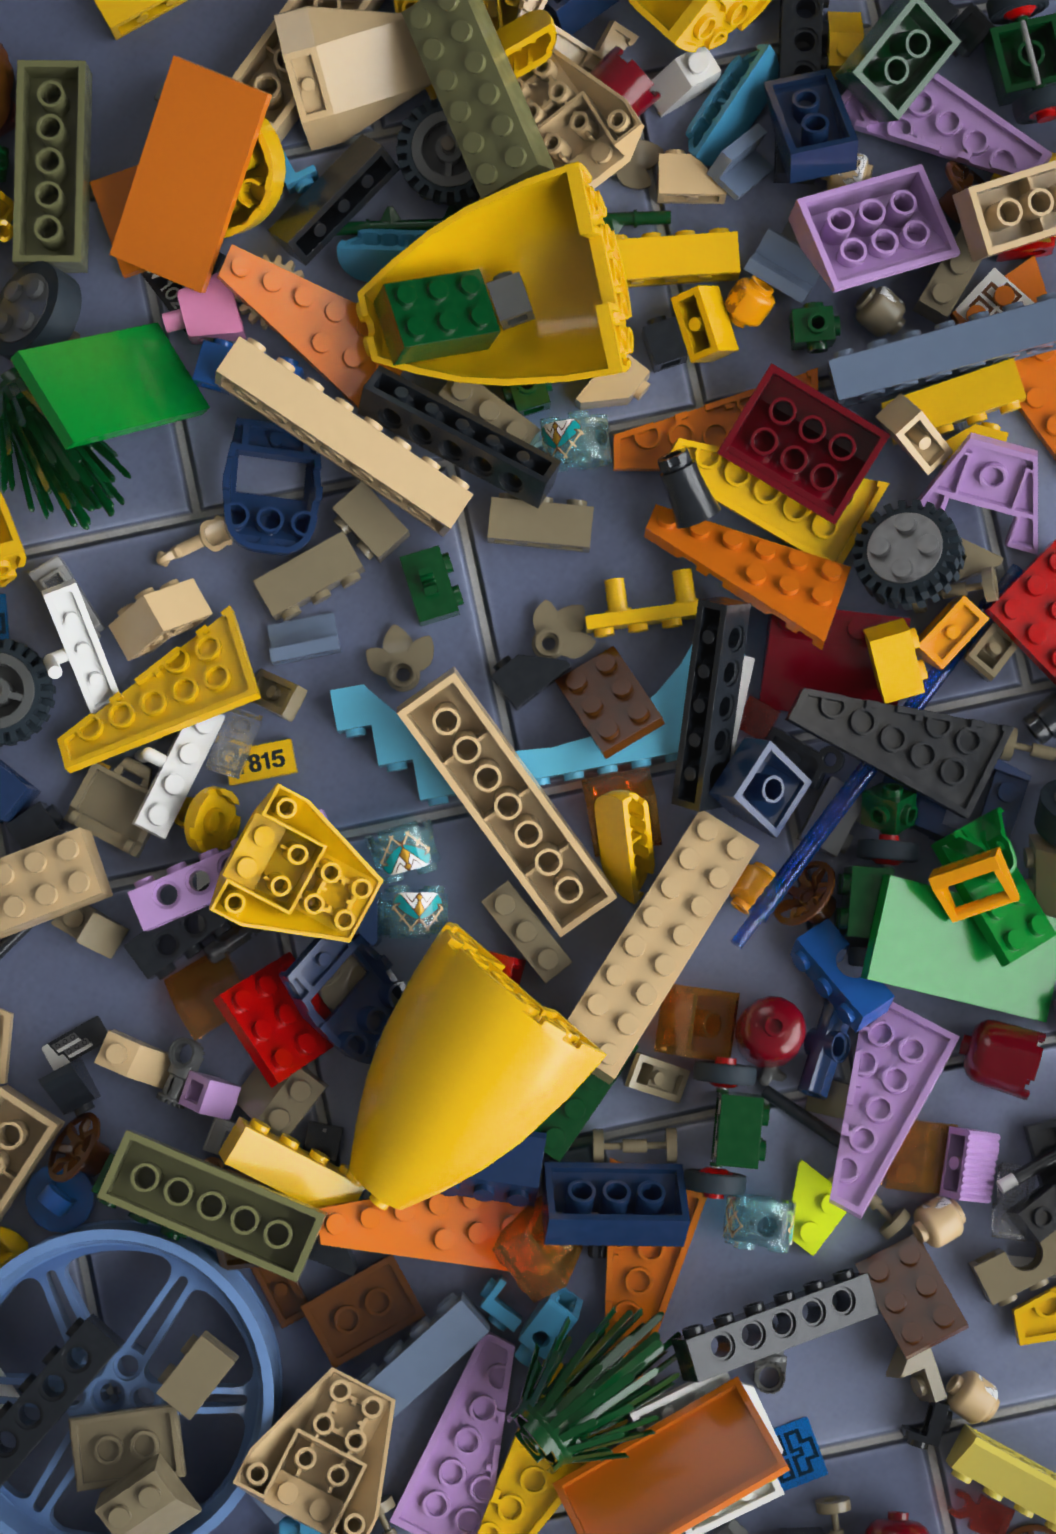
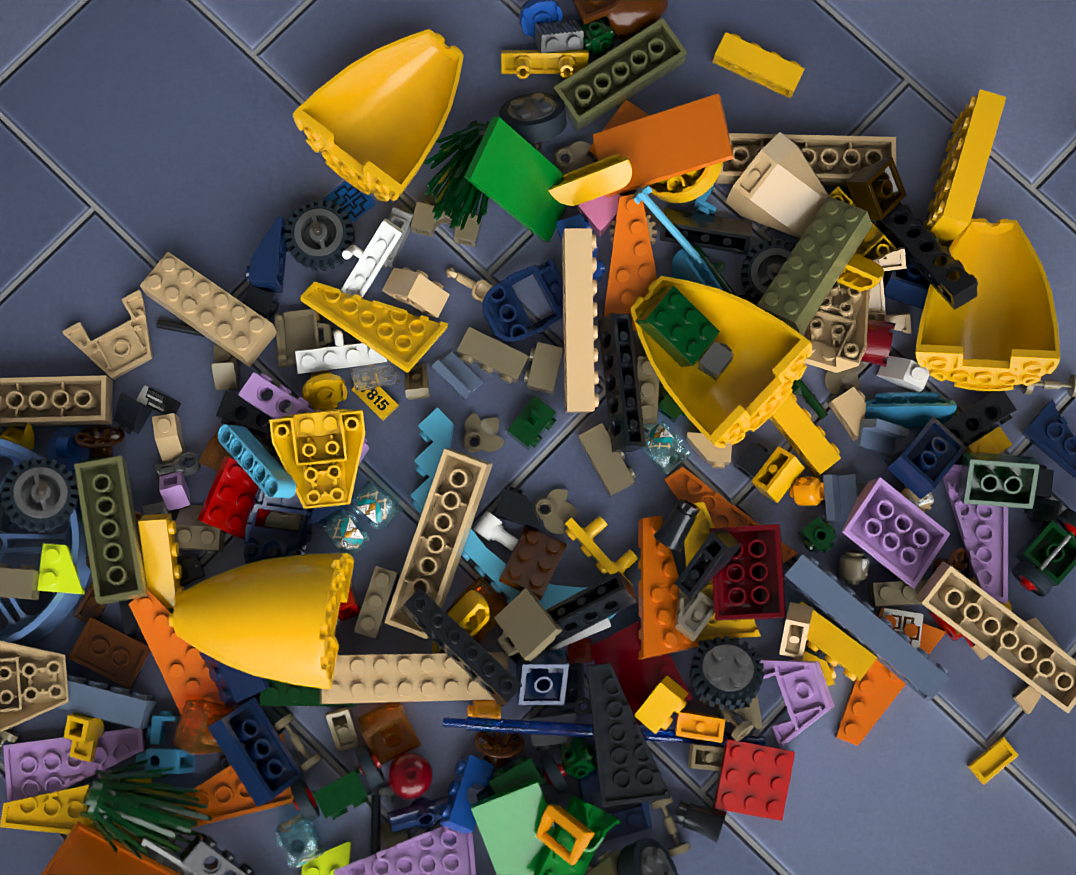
camera: 55 degrees right, 5 degrees down
(75, 543) = (424, 224): none -> dark tan arch
(106, 1267) = (39, 494): none -> wheel
(130, 298) = (577, 157): none -> dark tan plate
(173, 293) = (593, 180): none -> yellow brick
(220, 1306) = (58, 571): none -> neon yellow wing
(237, 244) = (642, 194): none -> medium azure piece
(248, 963) = (256, 461): none -> medium azure beam
(448, 1408) = (84, 733): none -> yellow brick
(529, 726) = (491, 529): none -> white pin
(659, 859) = (461, 647): none -> black brick
(688, 760) = (526, 625): none -> dark tan piece
(759, 483) = (707, 562): none -> black slope
(803, 543) = (693, 614): none -> dark tan wing

